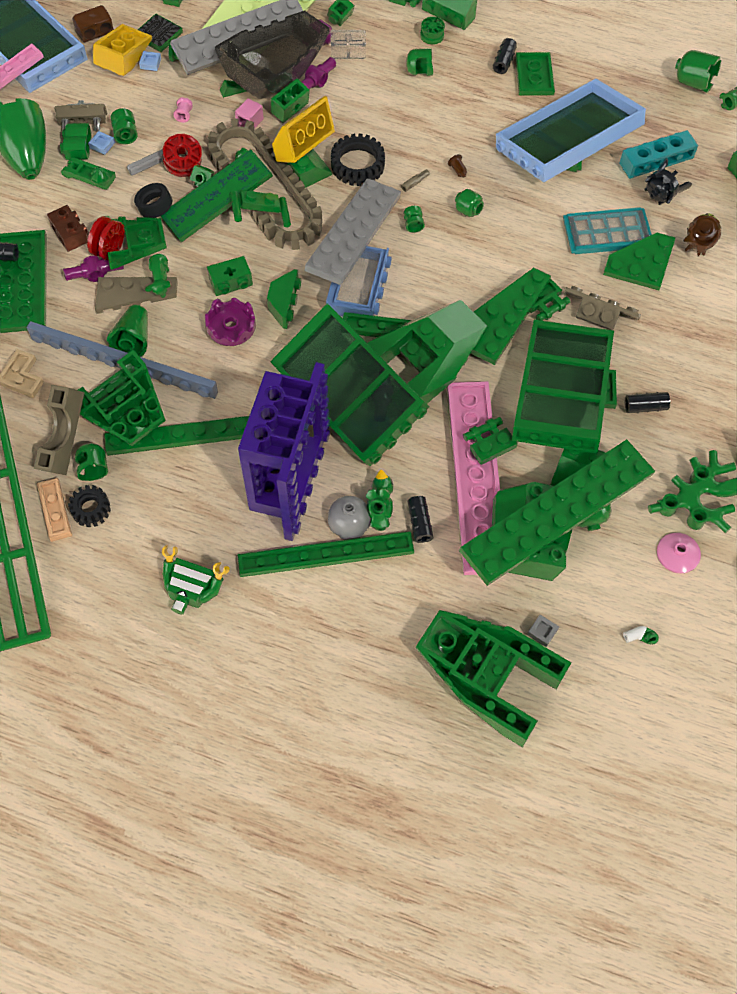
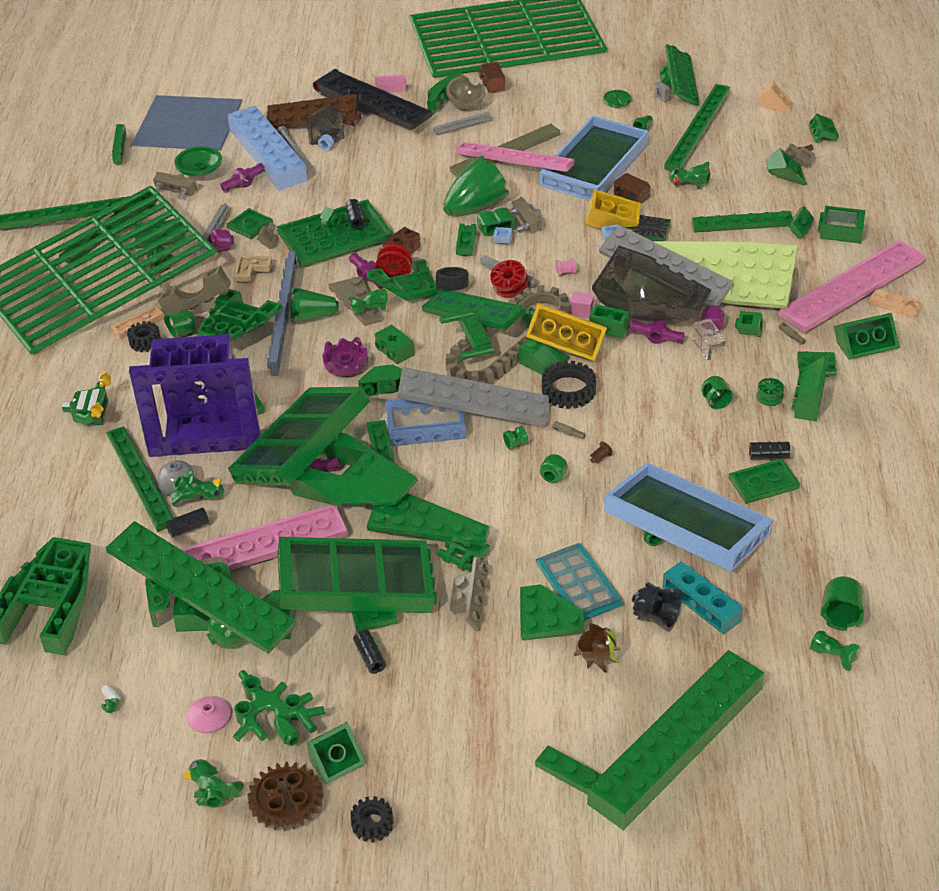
camera: 75 degrees right, 20 degrees down
(100, 176) = (458, 241): green plate -> none
(124, 126) = (524, 239): green wheel -> none
(201, 174) = (494, 292): green plate -> none
(492, 446) = (268, 542): green plate -> none
(543, 630) = (97, 627): light grey plate -> none

